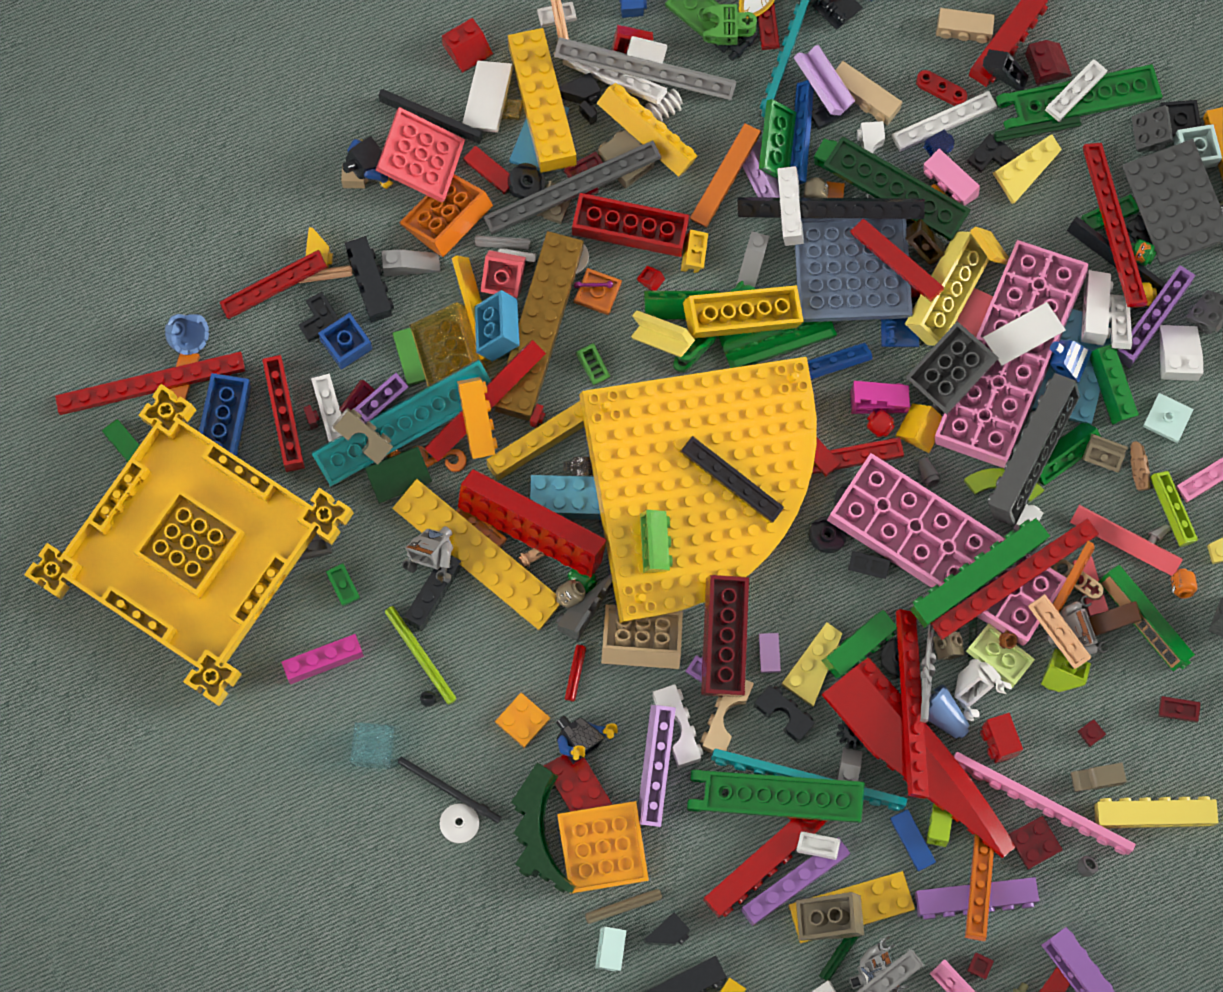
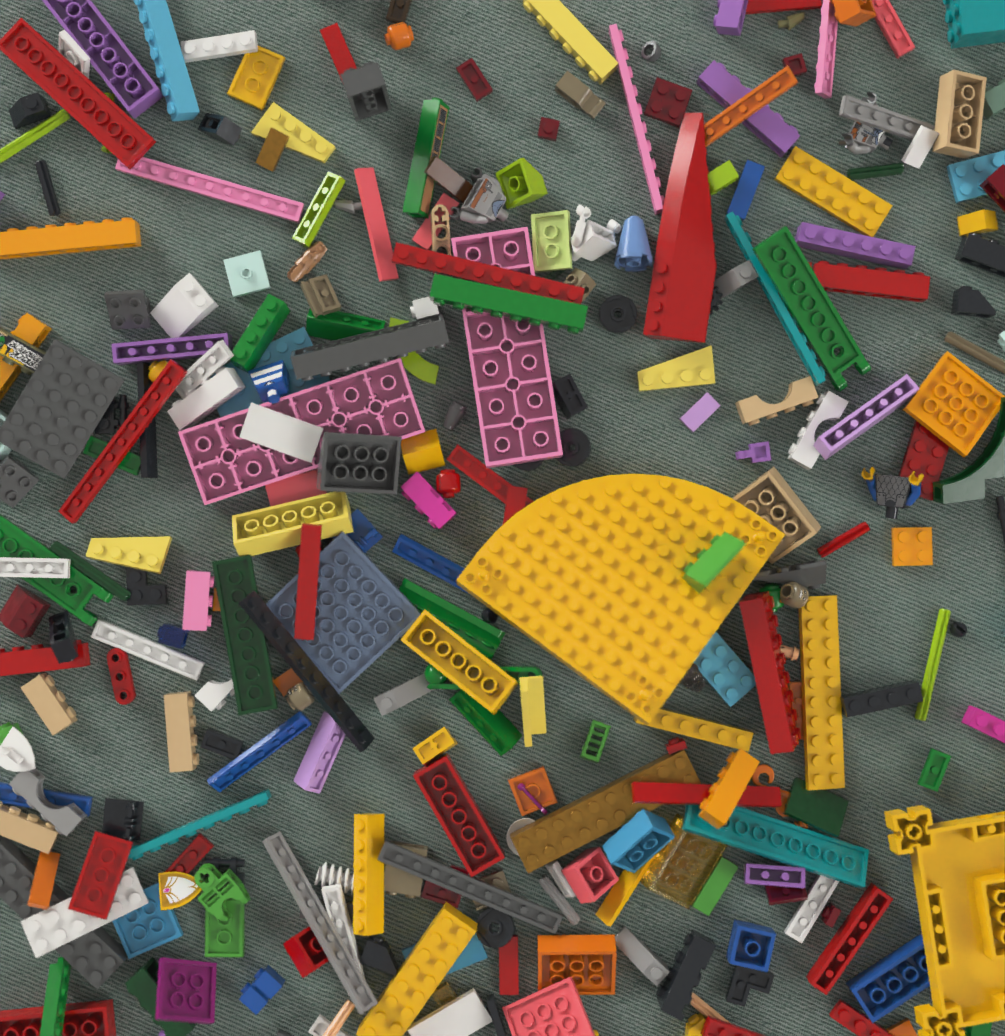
camera: 130 degrees left, 15 degrees up
(377, 444) = (820, 878): dark tan arch -> none
(430, 550) = (857, 725): light grey torso -> none
(588, 112) = (391, 932): black plate -> none
(647, 49) = (304, 934): white tile -> none
(651, 278) = (485, 760): red slope -> none
(725, 175) = (350, 778): orange tile -> none
(725, 636) = (730, 448): dark red brick -> none
(732, 479) = (607, 550): black tile -> none
(773, 700) = (736, 377): black arch -> none
(777, 138) = (285, 764): green plate -> none
(790, 206) = (324, 715): white arch -> none
(818, 845) = (819, 248): white tile -> none
(824, 152) = (260, 718): green brick -> none
(825, 80) = (200, 771): lavender panel -> none
(830, 917) = (861, 196): dark tan slope -> none
(860, 643) = (636, 350): green brick -> none
(911, 704) = (655, 268): red plate -> none
(924, 241) = (270, 574): dark brown brick -> none
(926, 675) = (624, 275): light grey sword -> none
(990, 245) = (228, 521): yellow tile -> none
(1001, 738) = (617, 184): red brick -> none
(1007, 640) = (537, 243): dark orange plate -> none
(1059, 631) = (499, 208): light nougat plate -> none
(1074, 576) = (444, 235): orange tile -> none
(1143, 252) = (126, 400): green head -> none
(1184, 583) = (372, 154): orange head -> none

